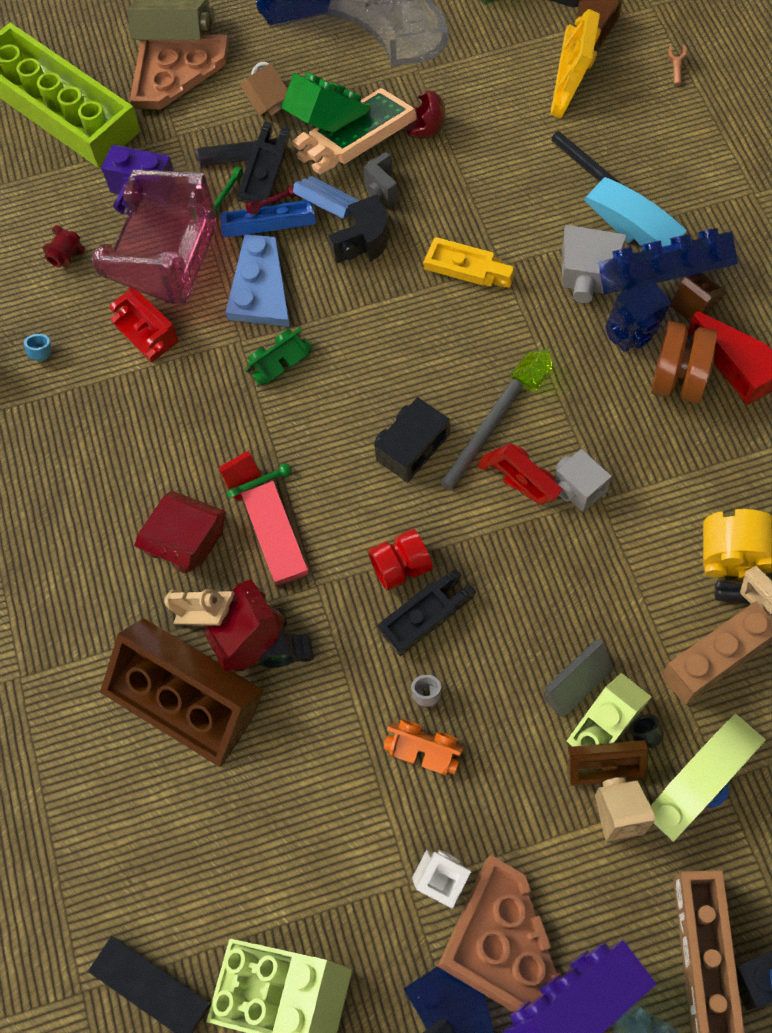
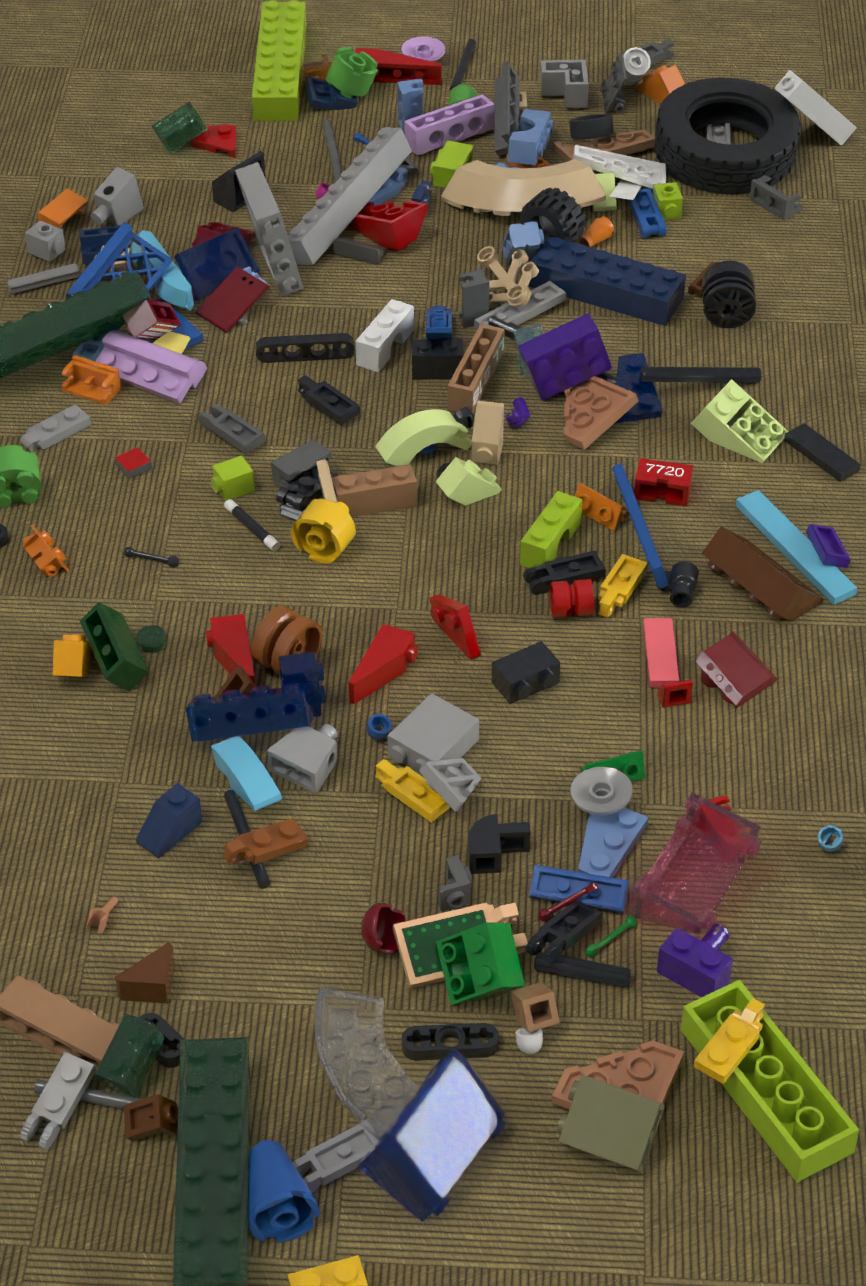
camera: 165 degrees left, 20 degrees down
(62, 247) = (789, 920): dark red brick -> none
(82, 81) = (731, 1042): none -> yellow hinge
(106, 776) = (828, 545): none -> dark purple tile
(154, 773) = (795, 547): none -> medium azure tile
(199, 607) = (732, 610): tan hinge -> none
(246, 630) = (706, 584): dark red slope -> none
(274, 292) = (601, 790): none -> light grey dish
(284, 470) = (637, 691): green hinge -> none
(324, 196) = (498, 872): medium blue tile -> none
(349, 60) = (459, 1031): none -> black beam
(351, 618) = (620, 583): none -> yellow hinge
(353, 822) = (663, 481): none -> red brick
(359, 716) = (640, 526): none -> blue tile
(429, 272) = (451, 779): none -> light grey wing
(434, 686) = (580, 526): light grey hinge -> none
(440, 877) = (619, 438): white brick -> none
(466, 664) = (557, 520): none -> lime arch
(473, 325) = (432, 733): none -> light grey brick
(481, 435) = (466, 669): dark grey bar -> none
(529, 320) = (373, 724): none -> blue hinge
(533, 369) = (401, 698): clear neon green slope -> none
(572, 404) = (383, 661): none -> red slope
(574, 161) = (266, 843): none -> dark orange hinge
(575, 59) = (203, 931): yellow wing -> none
(578, 679) = (477, 512): dark grey slope -> none
(581, 480) = (409, 609): light grey brick -> none
(604, 901) = (520, 414): none -> dark purple arm
(607, 757) = (496, 466): reddish brown tile -> none
(673, 159) = (170, 820): none -> dark blue slope
(680, 858) = (465, 417): none -> black hinge

